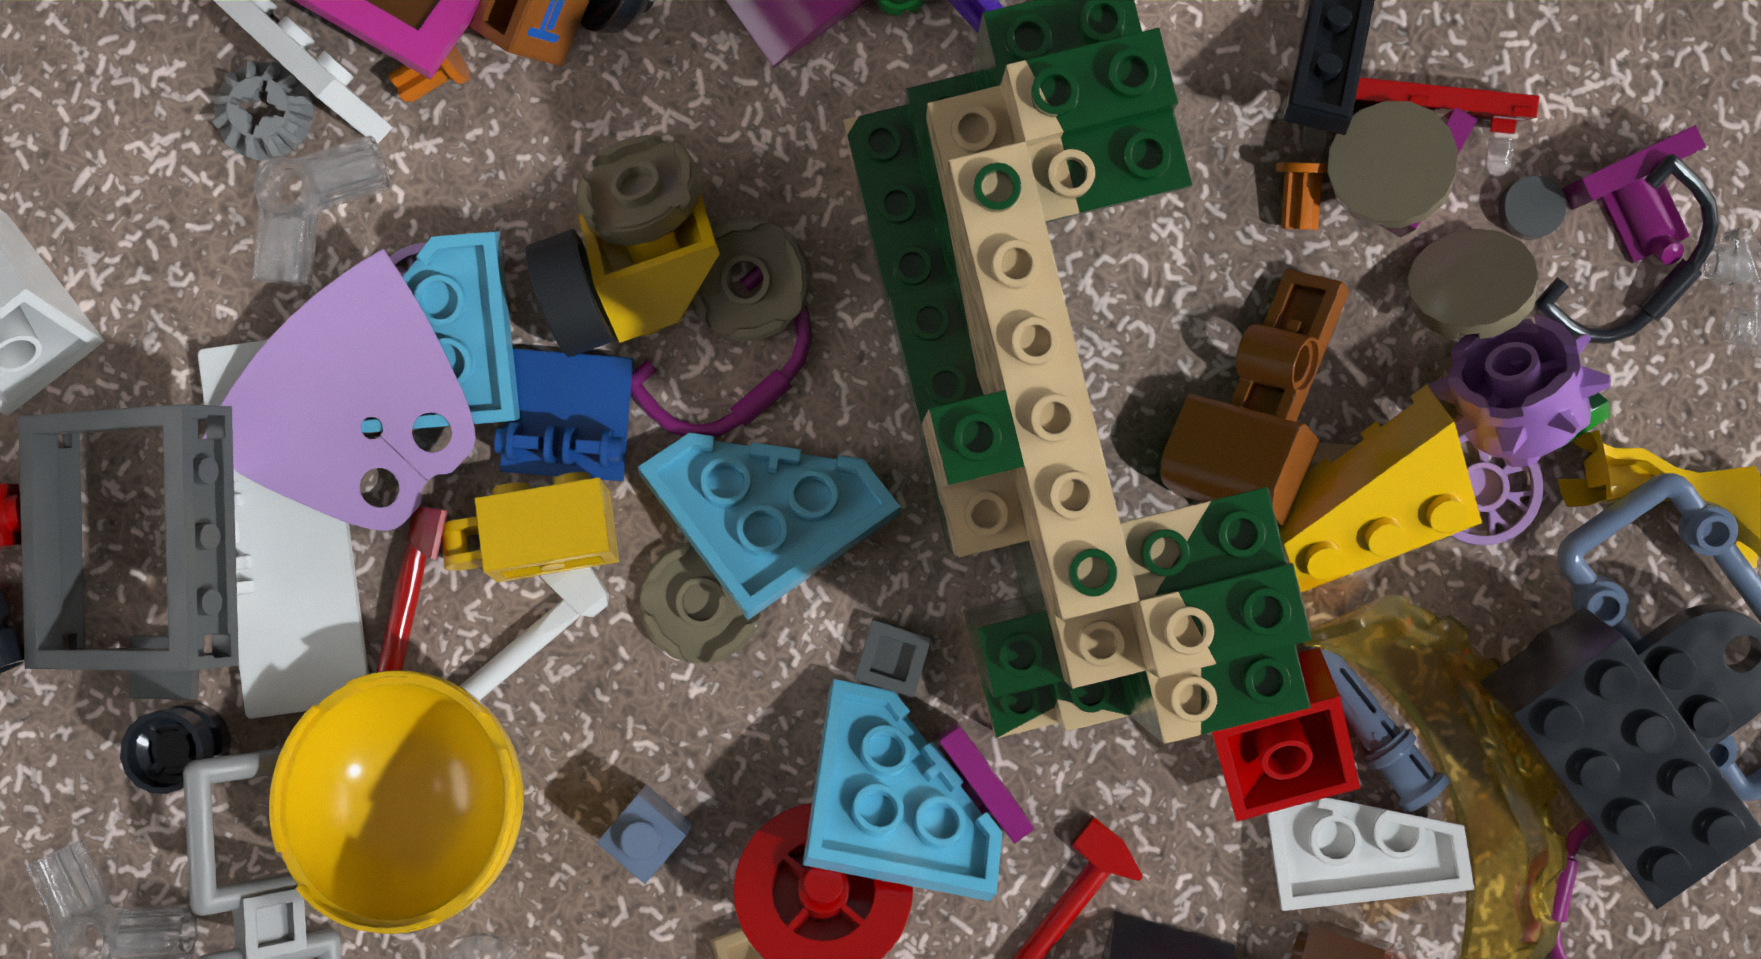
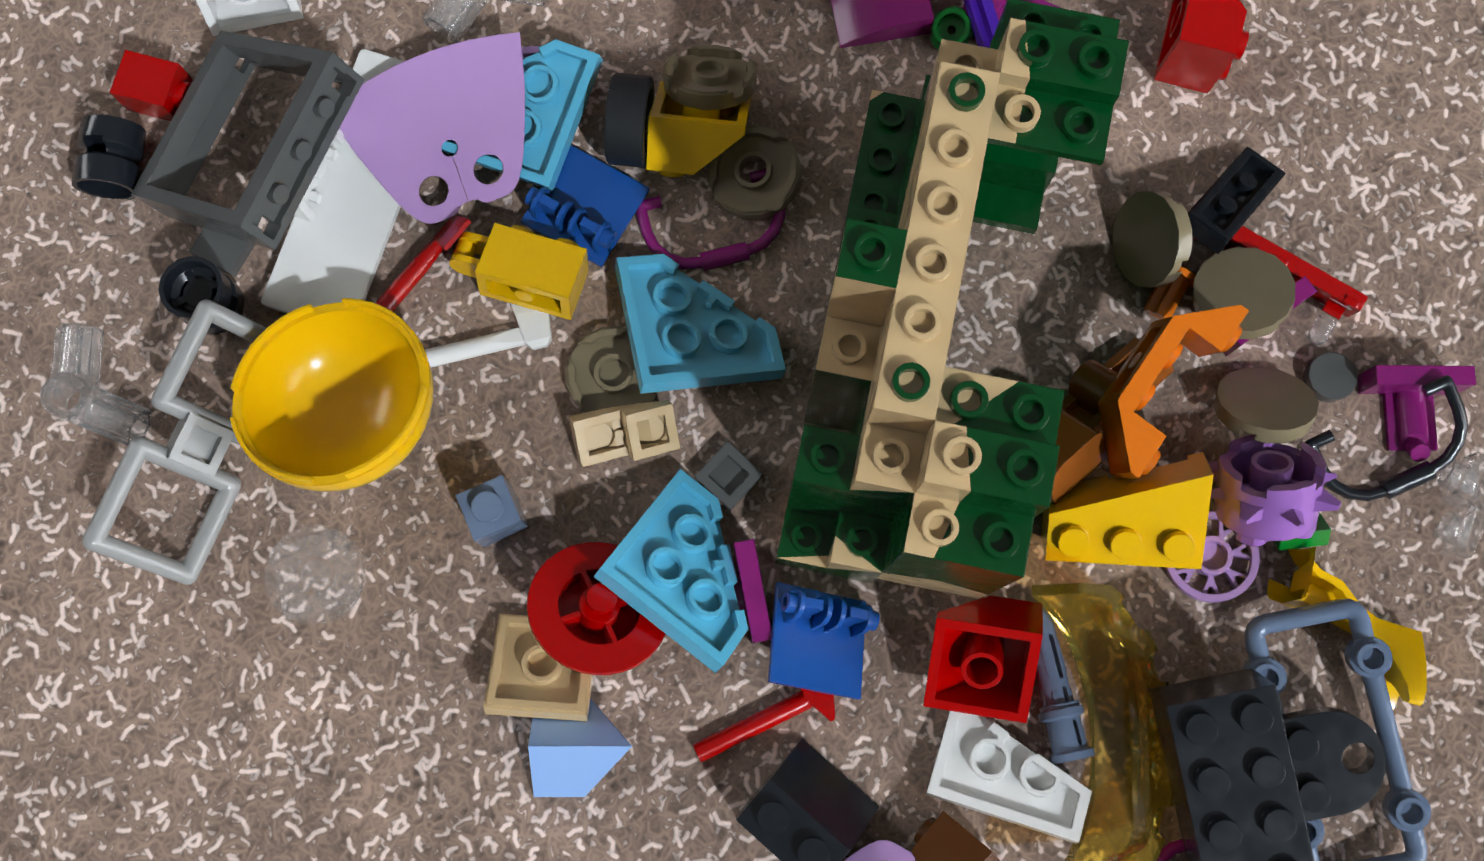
camera: 25 degrees right, 10 degrees down
(757, 658) = (624, 430): none -> tan slope
(1085, 801) = (819, 640): none -> blue hinge
(1257, 145) = (1151, 238): none -> dark tan tile
(1342, 421) = (1128, 438): none -> orange slope

